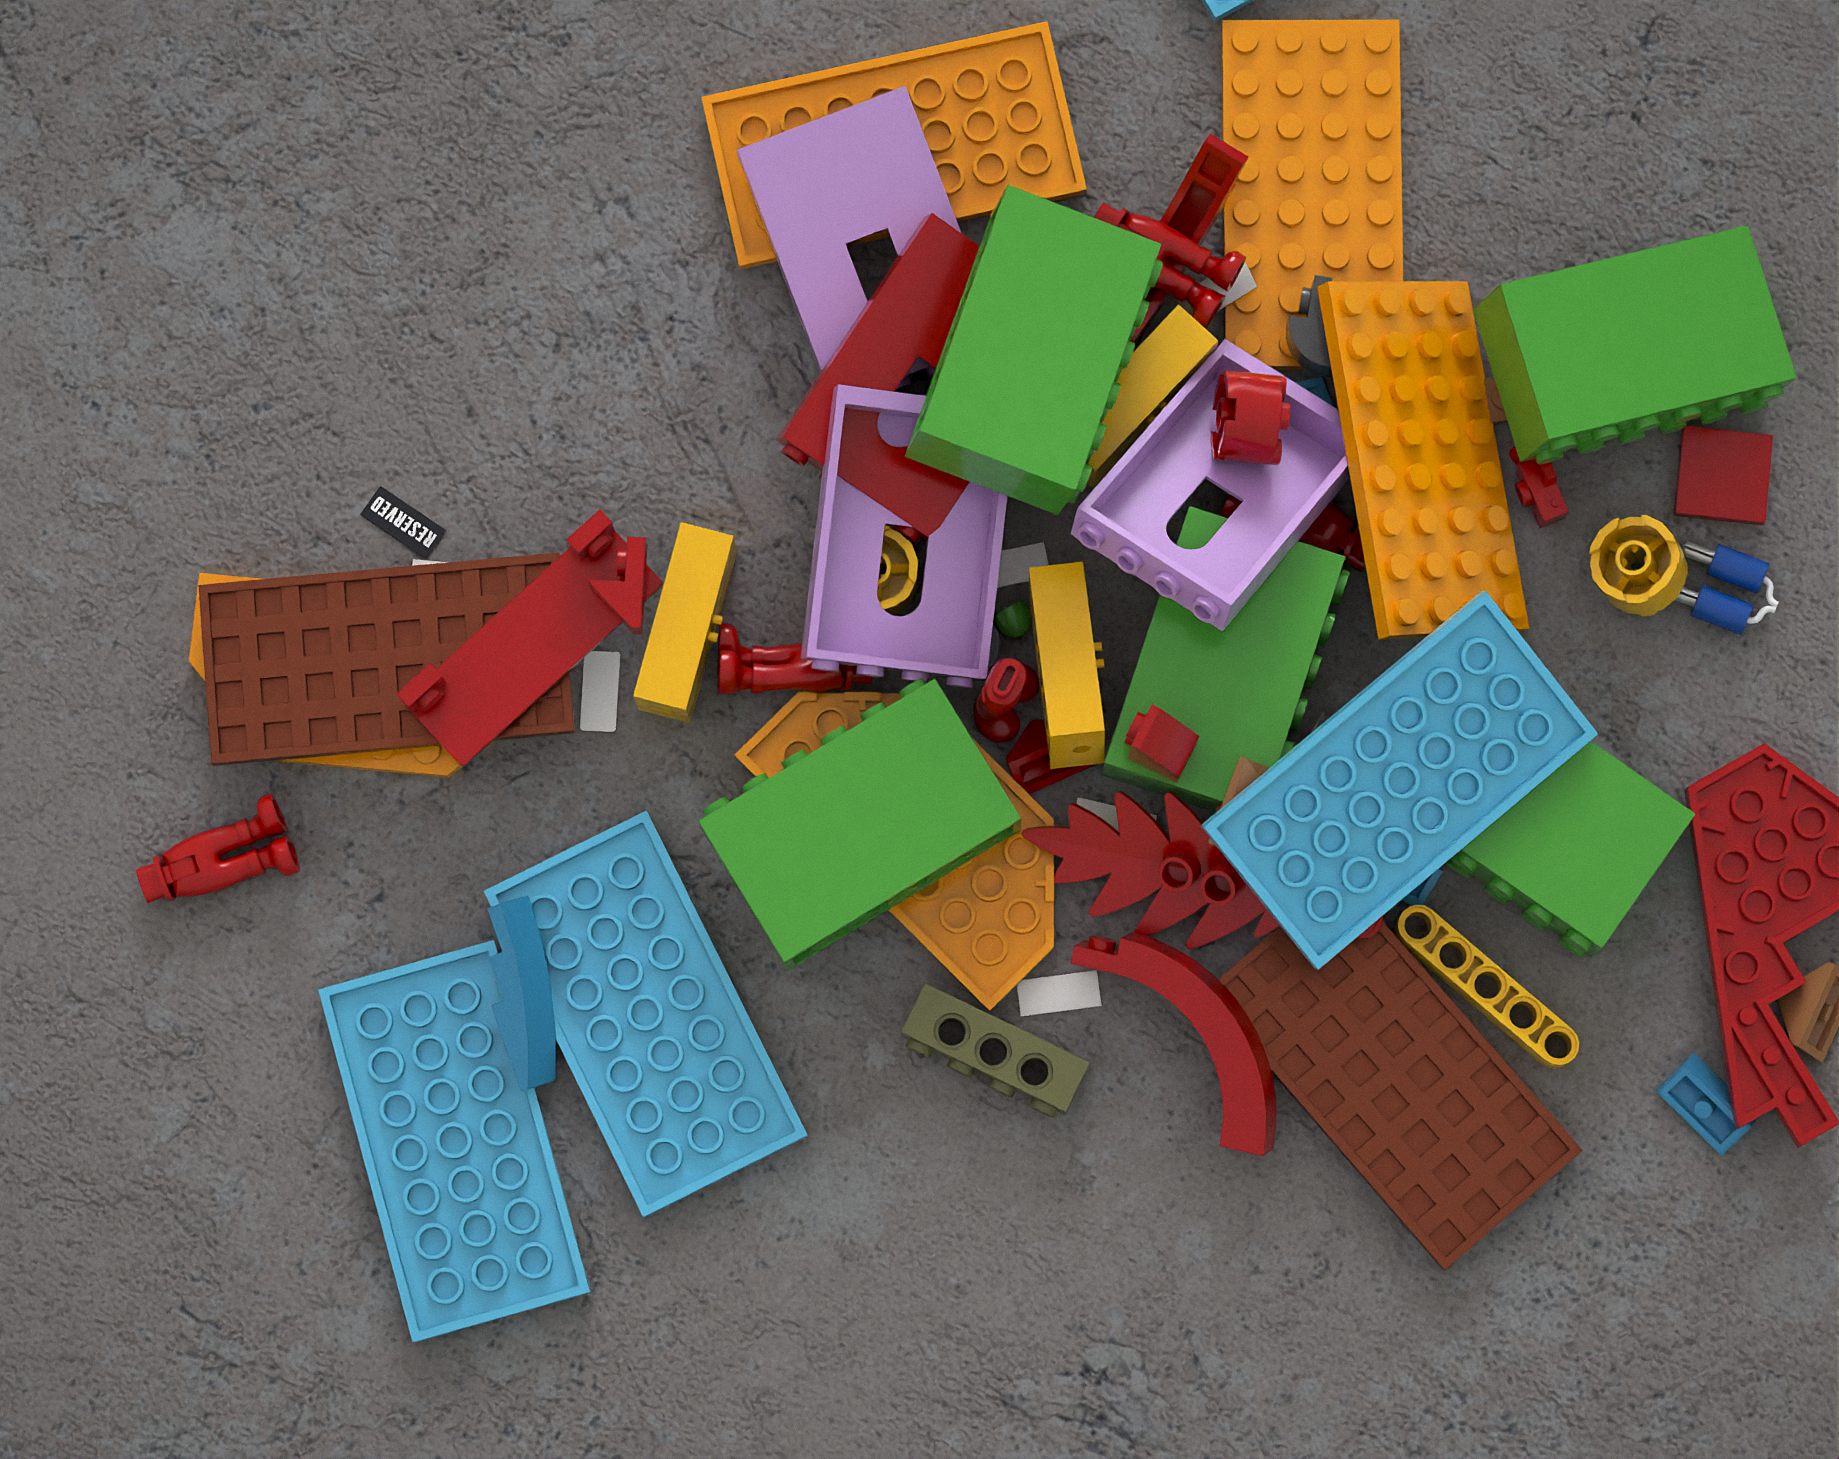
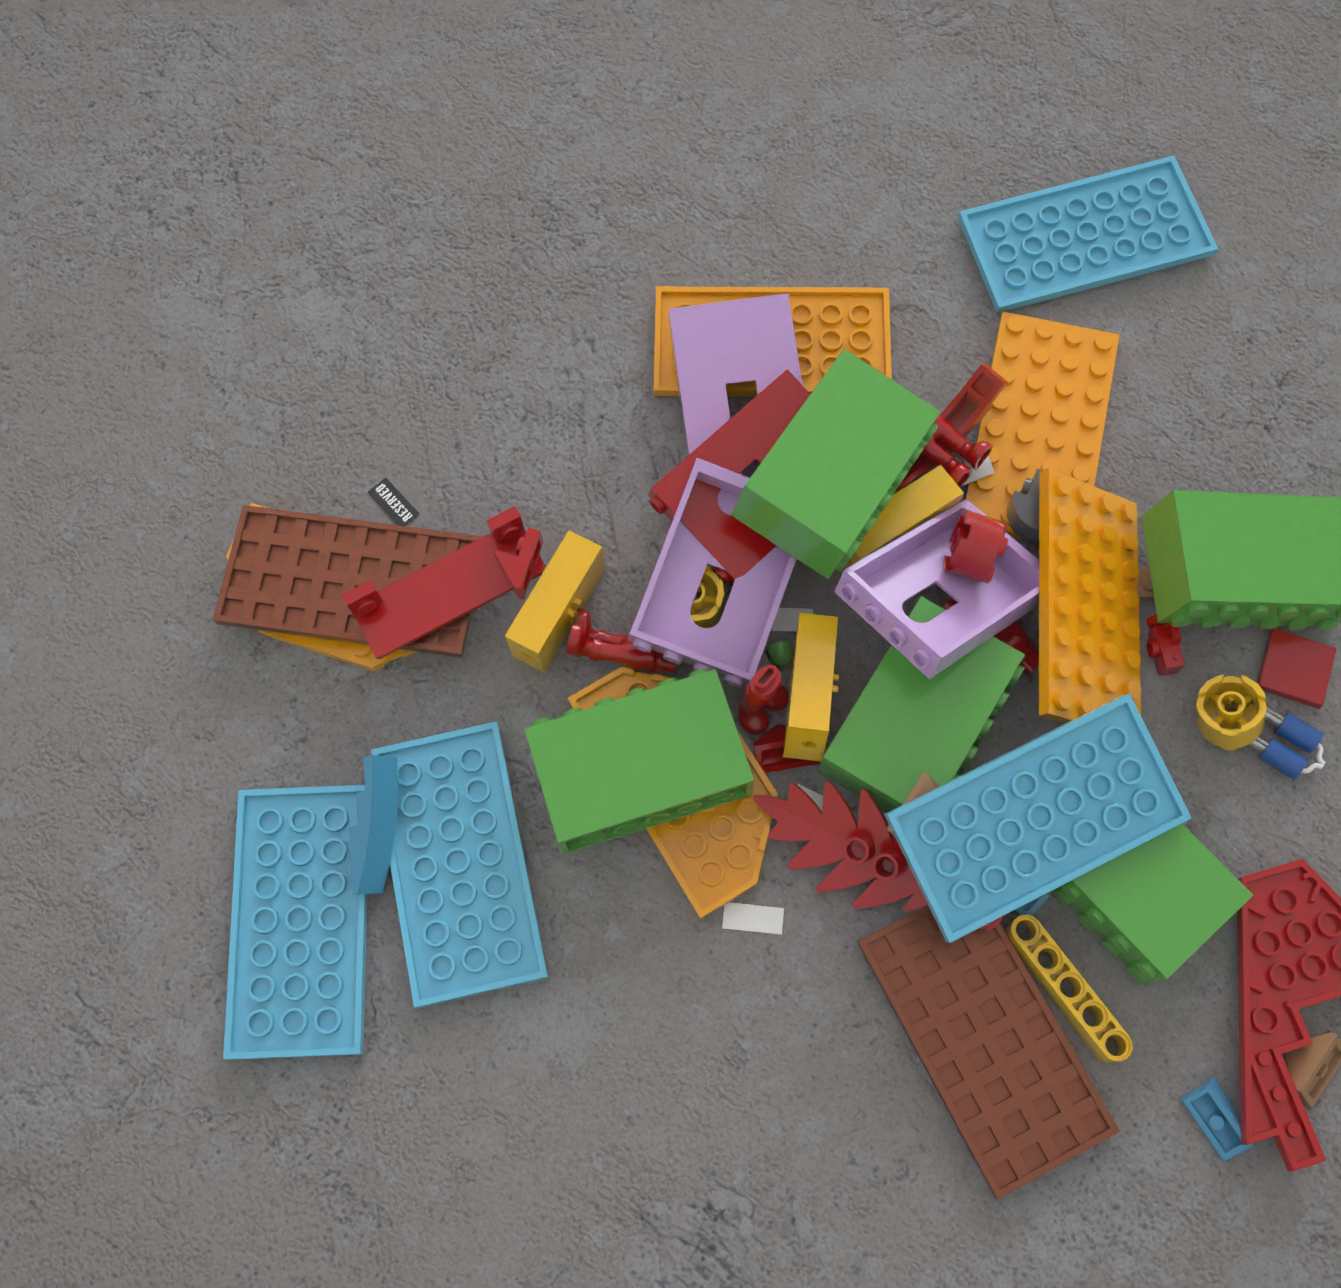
camera: 15 degrees right, 10 degrees down
(196, 863) = (187, 686): red piece -> none
(600, 691) = (490, 638): white sticker -> none
(936, 1008) = (663, 907): olive brick -> none
(1160, 743) = (867, 748): red slope -> none
(1218, 1018) = (868, 970): red arch -> none

